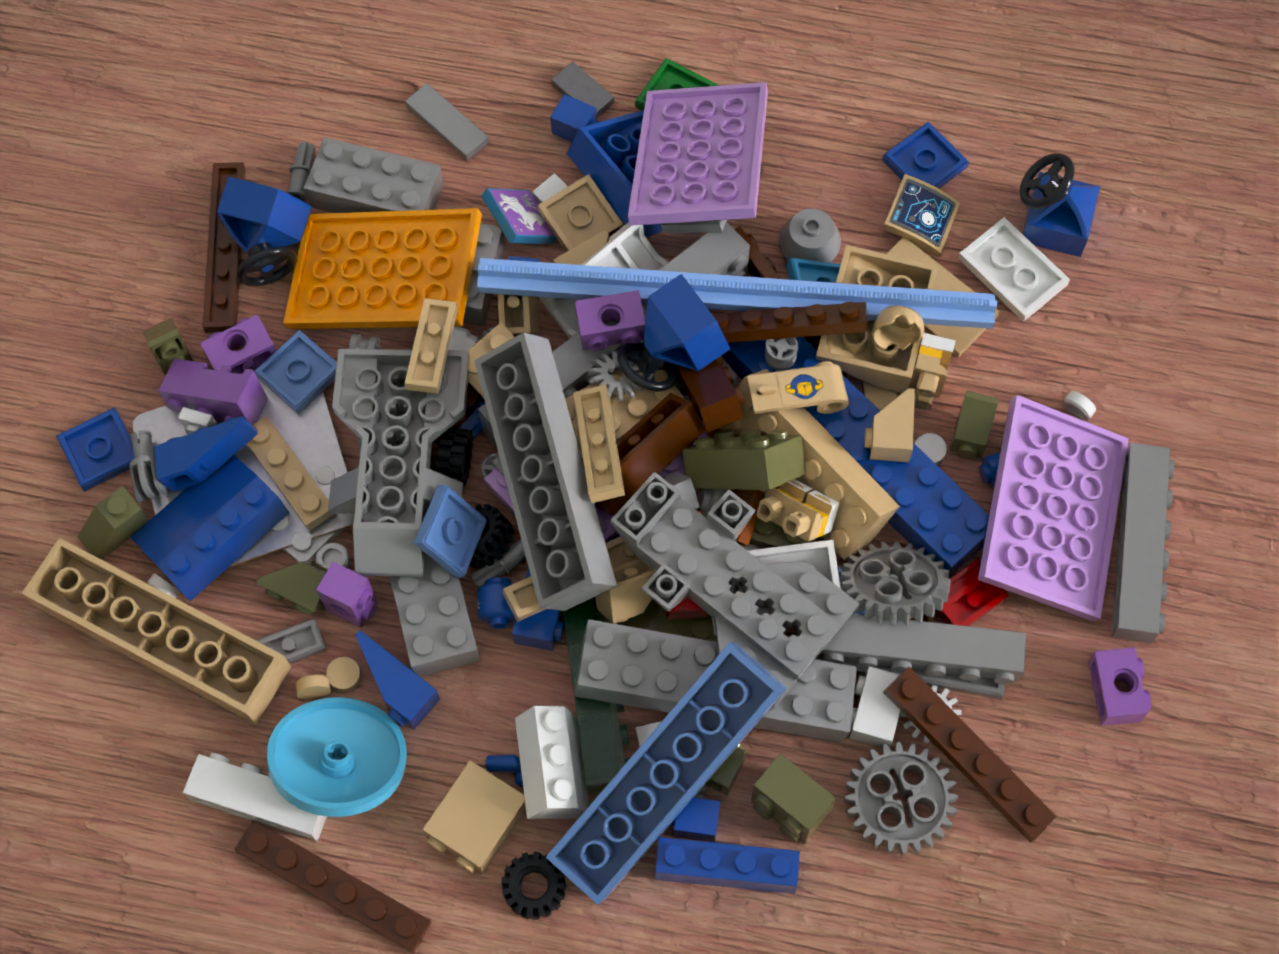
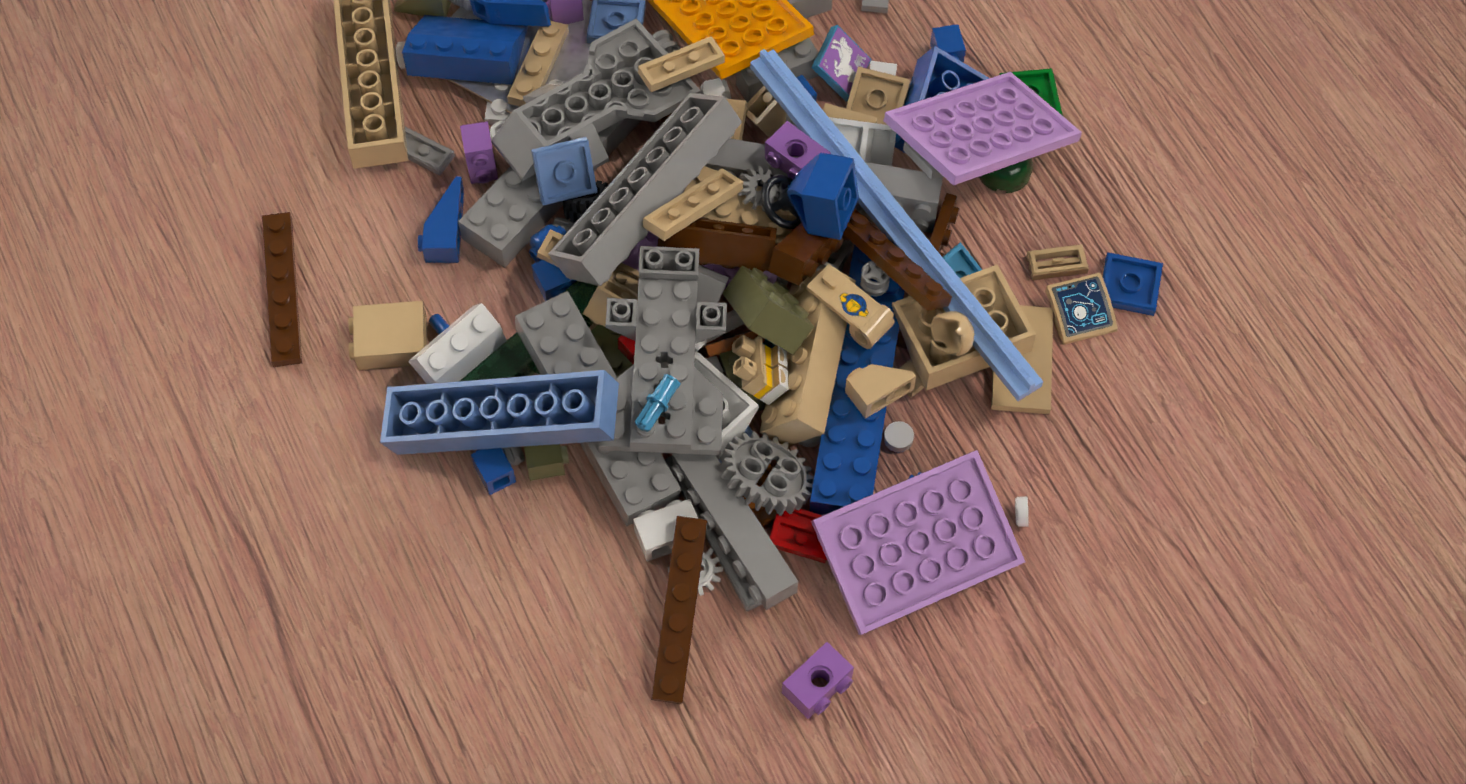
camera: 50 degrees right, 5 degrees down
(248, 795) = (305, 203): white brick -> none
(296, 584) = (460, 114): olive slope -> none
(313, 687) = (404, 182): tan tile -> none
(336, 757) = (364, 223): medium azure dish -> none
(344, 674) = (428, 194): tan tile -> none
(455, 454) = (626, 143): black tyre -> none
(533, 907) = (358, 391): black tyre -> none
(581, 86) = (978, 38): flat silver tile -> none
(727, 865) = (474, 508): blue brick -> none
(785, 622) = (657, 403): none -> dark azure axle
(791, 799) = (549, 513): olive brick -> none
(810, 237) = (994, 245): light grey cone -> none
(847, 219) = (1058, 266): none -> tan tile
(871, 805) = (589, 574): light grey gear -> none
(931, 369) = (955, 387): tan hips -> none
(974, 425) = (937, 445): olive slope -> none
(1013, 269) = (1094, 397): white plate -> none
(1059, 206) = (1168, 390): blue piece -> none
(1141, 544) = (947, 624): light grey brick -> none

